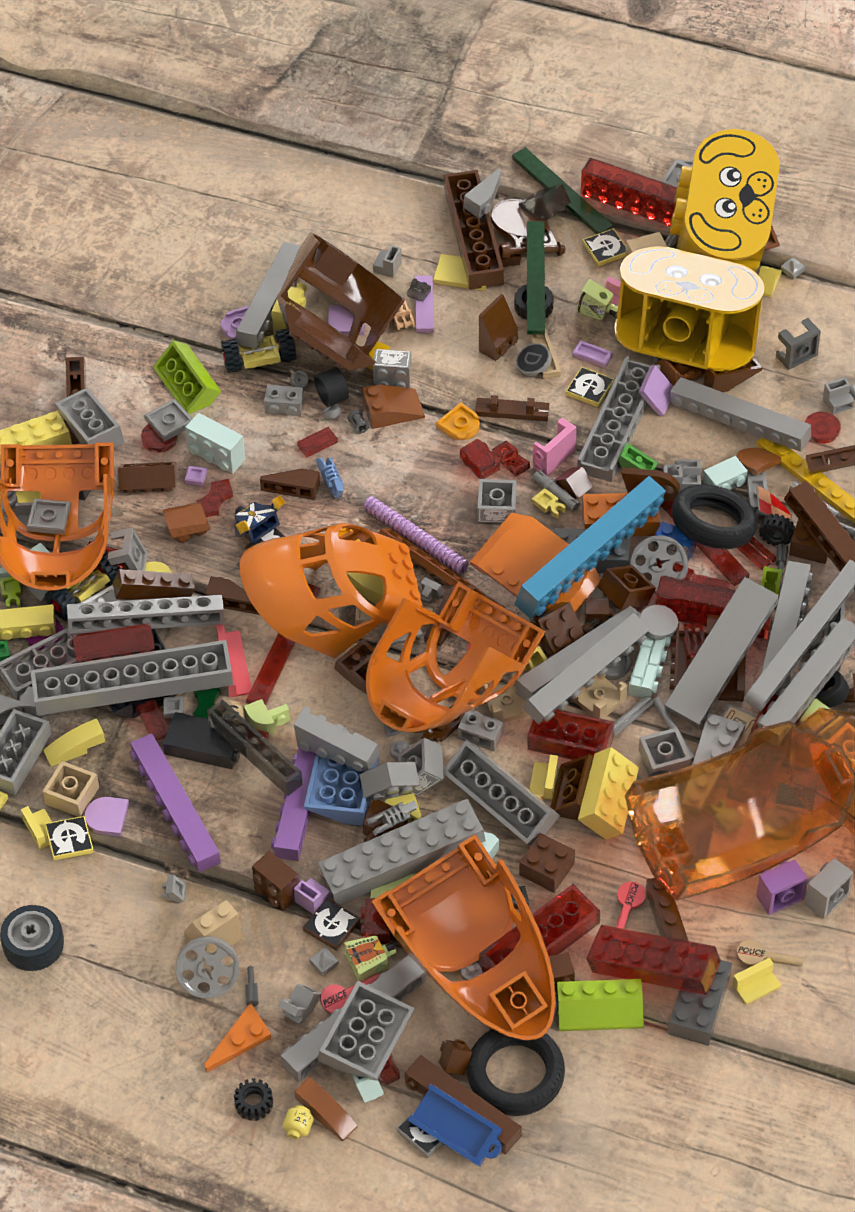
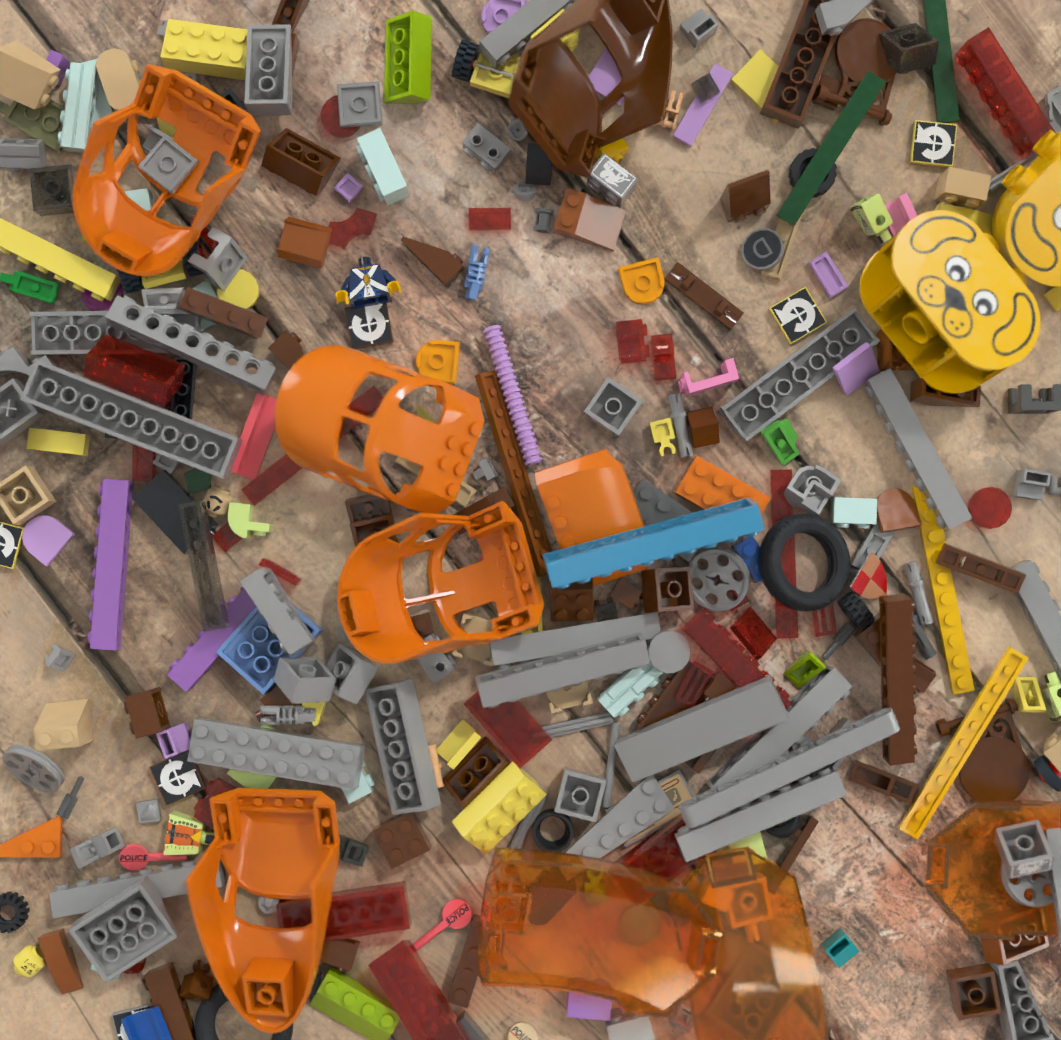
camera: 30 degrees right, 35 degrees up
(633, 477) = (769, 487): reddish brown tile -> none

